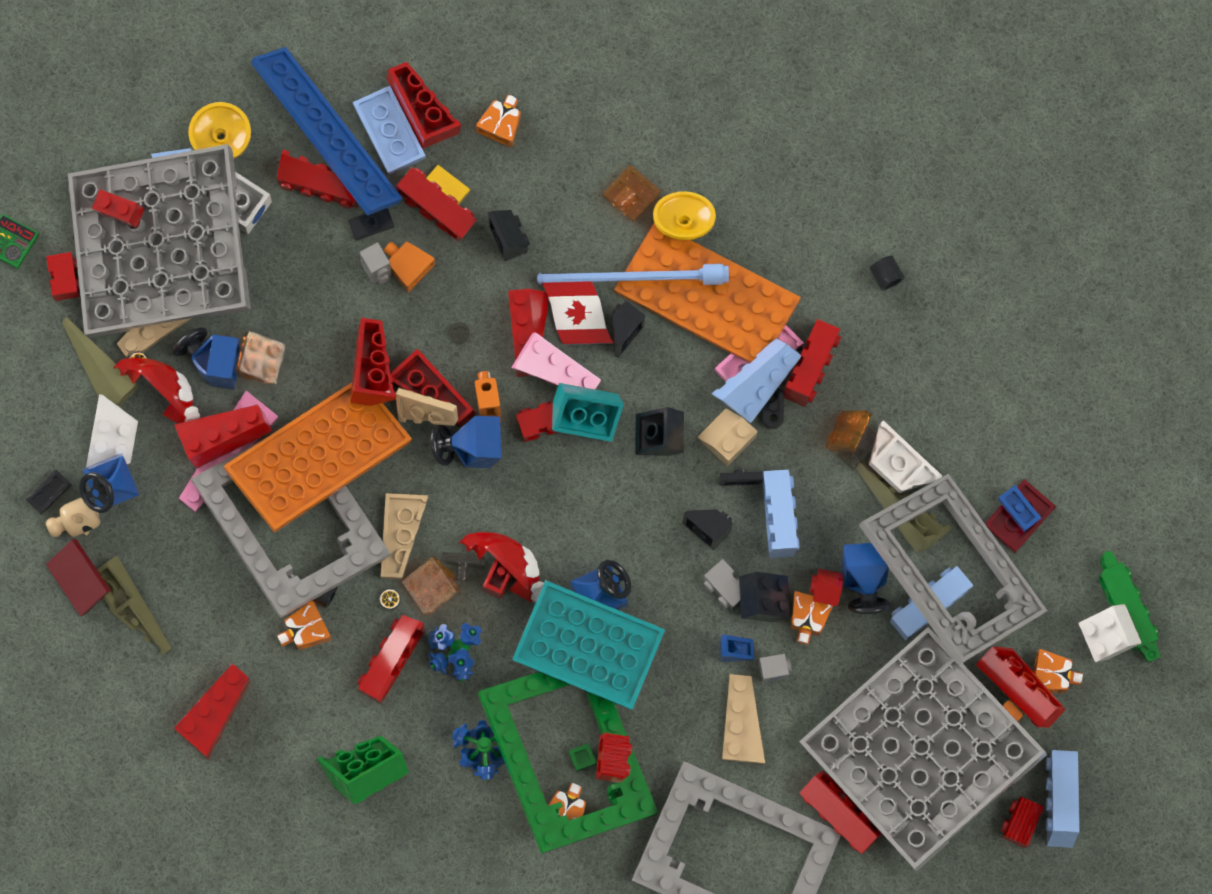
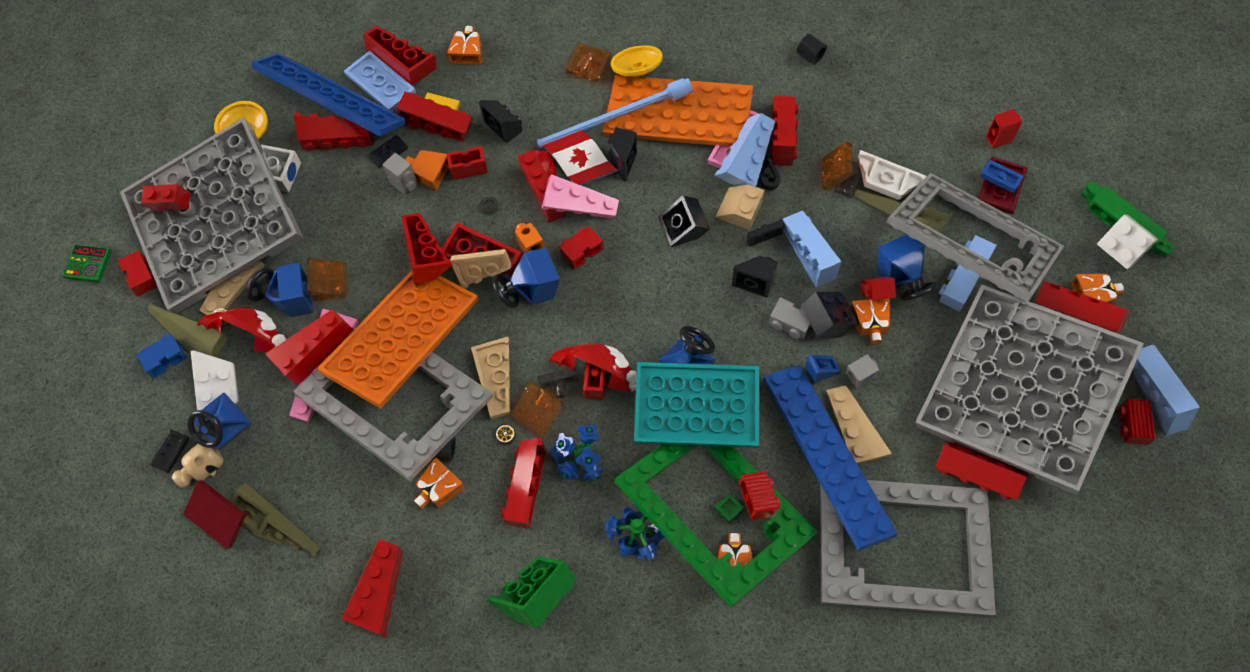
camera: 10 degrees left, 10 degrees down
(65, 382) = (161, 355): none -> blue brick
(452, 275) = (467, 163): none -> red brick
(586, 412) = (617, 224): teal slope -> none
(698, 741) = (830, 458): none -> blue plate
(1048, 454) = (1004, 128): none -> red brick

